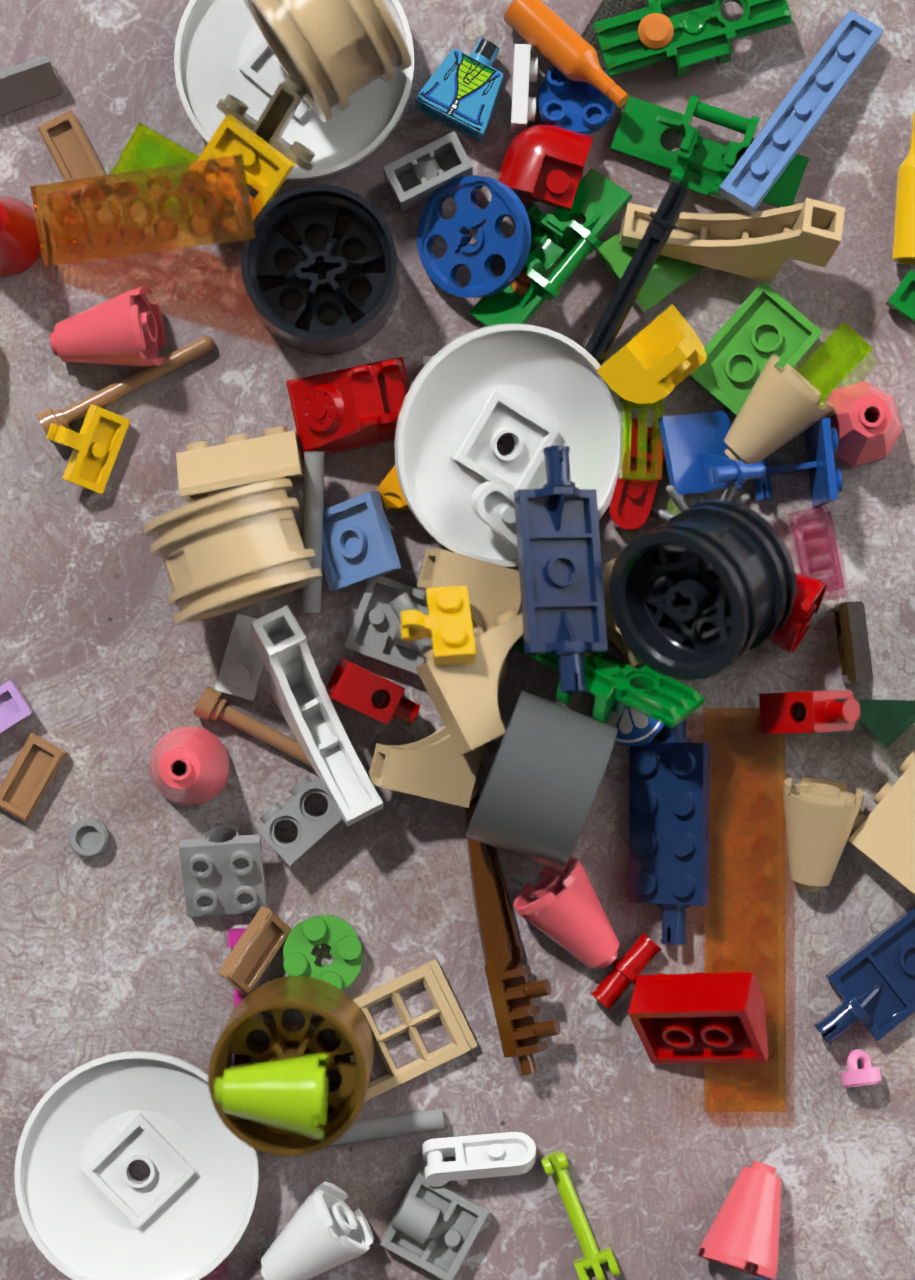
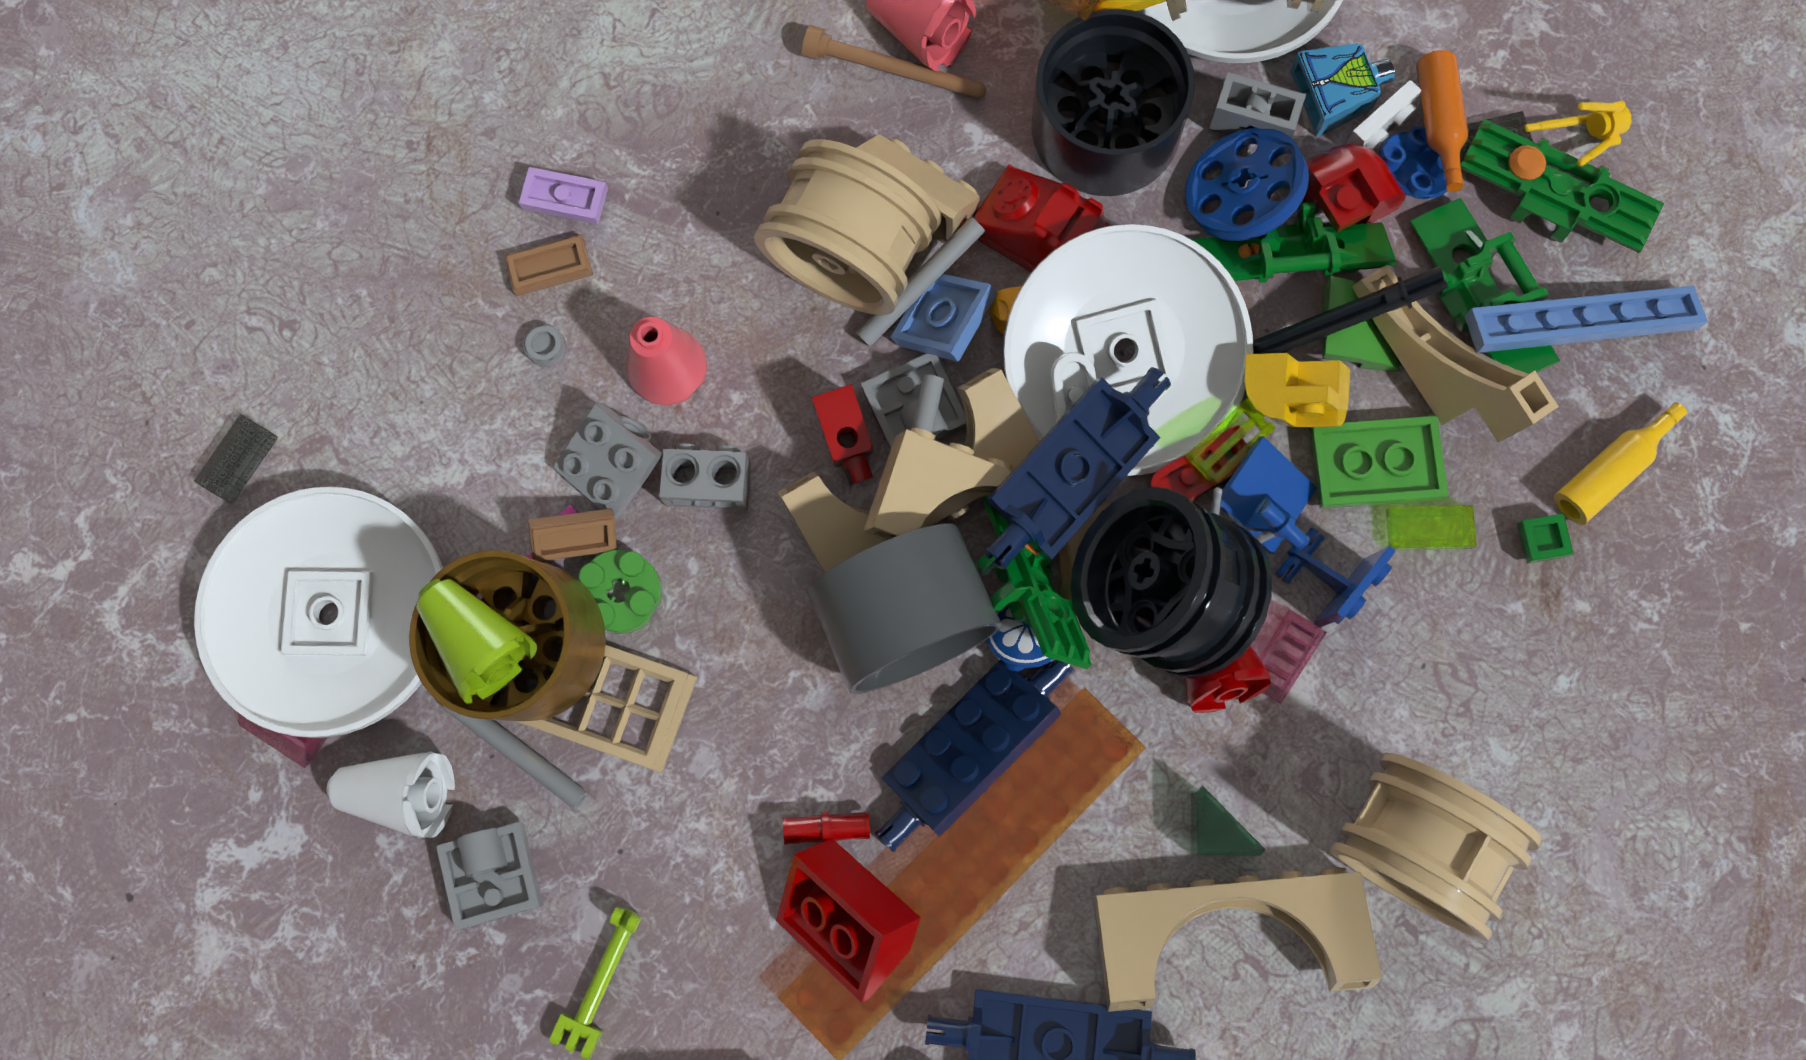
camera: 55 degrees right, 10 degrees down
(93, 447) = (827, 82): yellow plate -> none
(214, 706) = (725, 336): medium nougat piece -> none
(241, 663) = (784, 327): white plate -> none
(311, 714) = (787, 402): white arch -> none
(446, 624) = (946, 422): yellow plate -> none
(477, 1157) = (574, 855): white plate -> none
(503, 953) = (738, 732): reddish brown piece -> none
(570, 914) = (828, 740): coral cone -> none
(774, 413) = (1355, 513): tan cone -> none
(817, 828) = (1080, 864): tan cone -> none
(824, 711) = (1171, 776): red torso -> none
(853, 642) = (1248, 751): dark brown slope -> none
(862, 439) = (1413, 595): coral cone -> none

